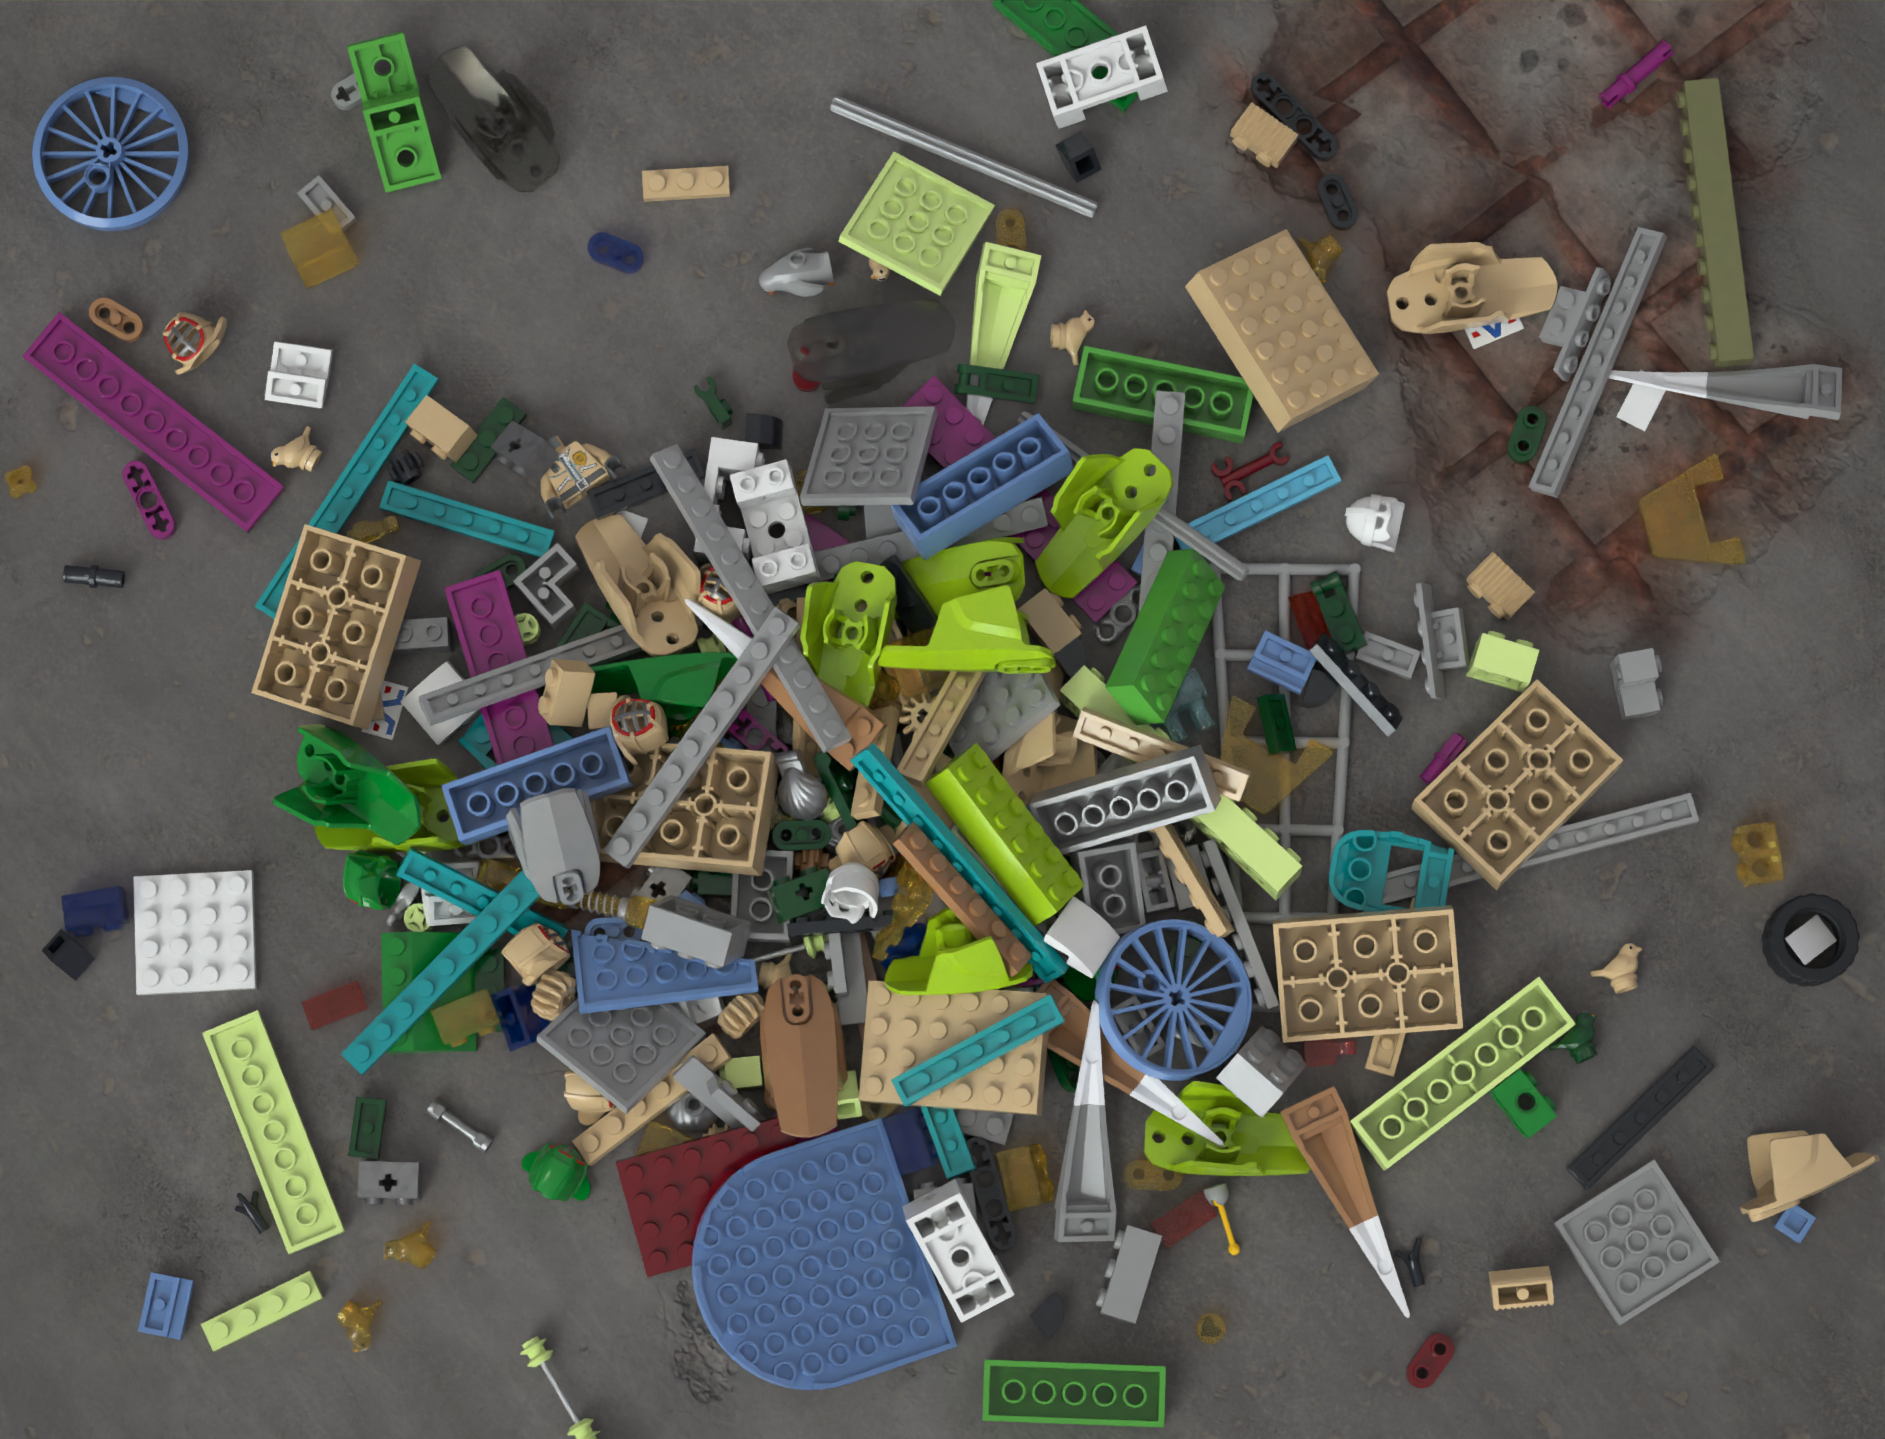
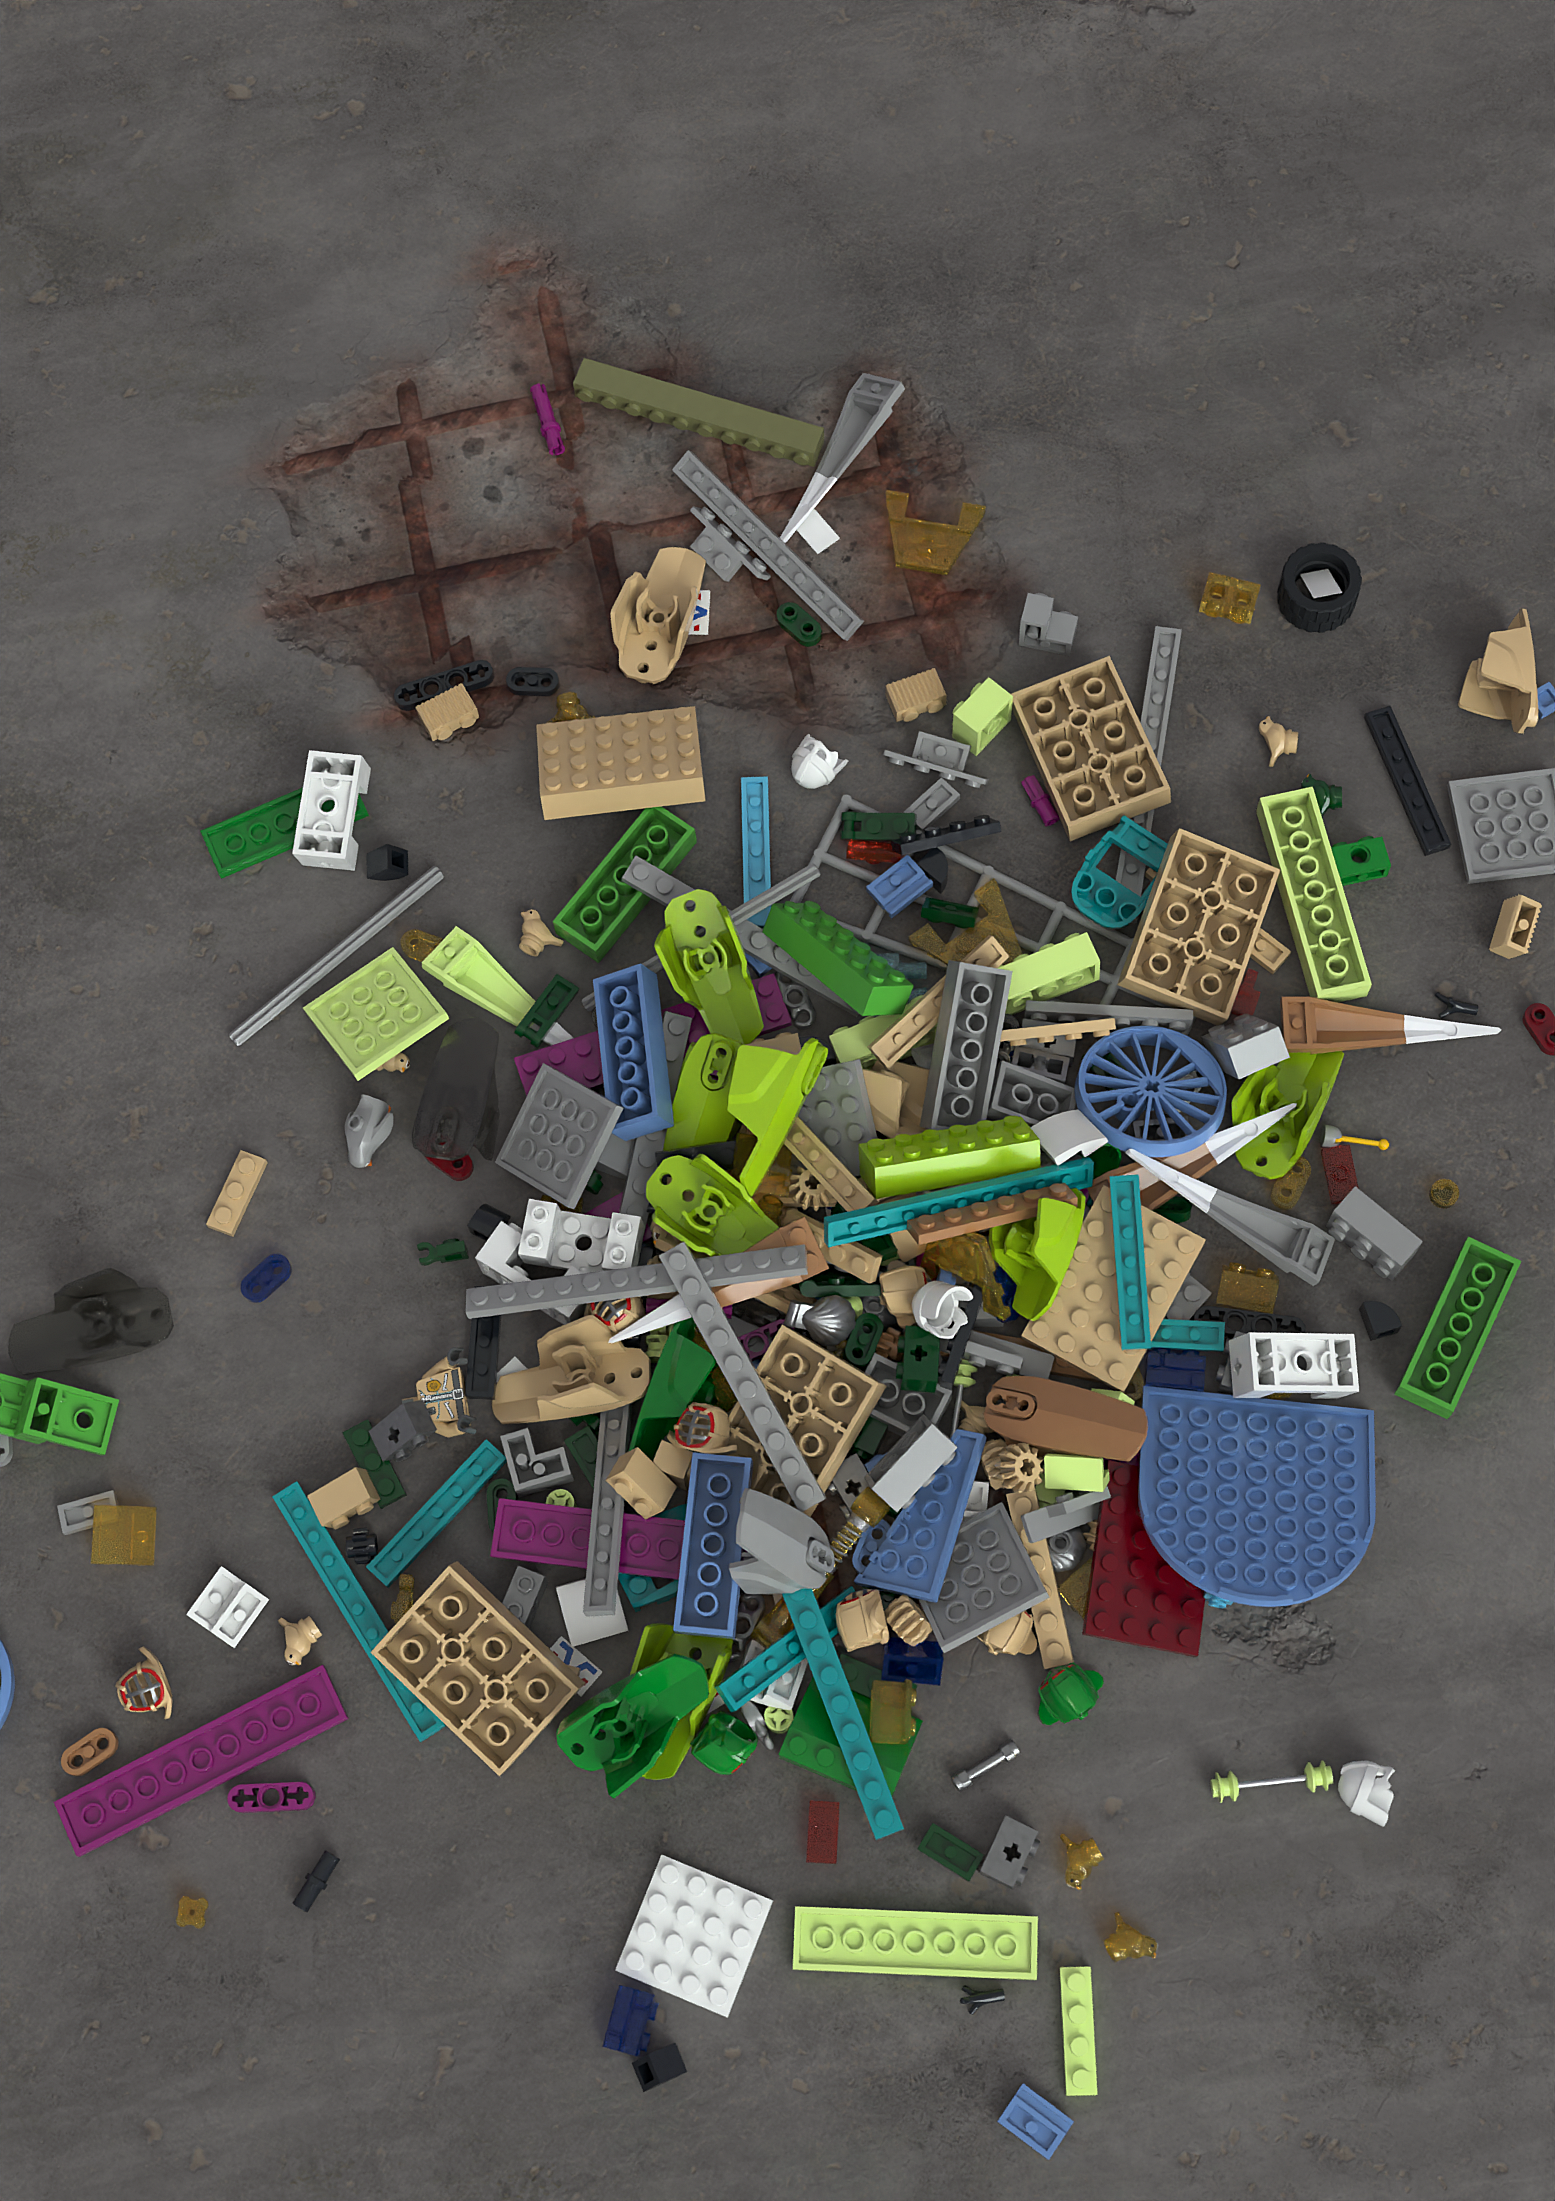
camera: 60 degrees left, 10 degrees down
(737, 1025) = (1020, 1467): none -> tan gear
(755, 1088) = (1075, 1472): none -> yellowish green panel
(1230, 479) = (721, 864): dark red bar -> none

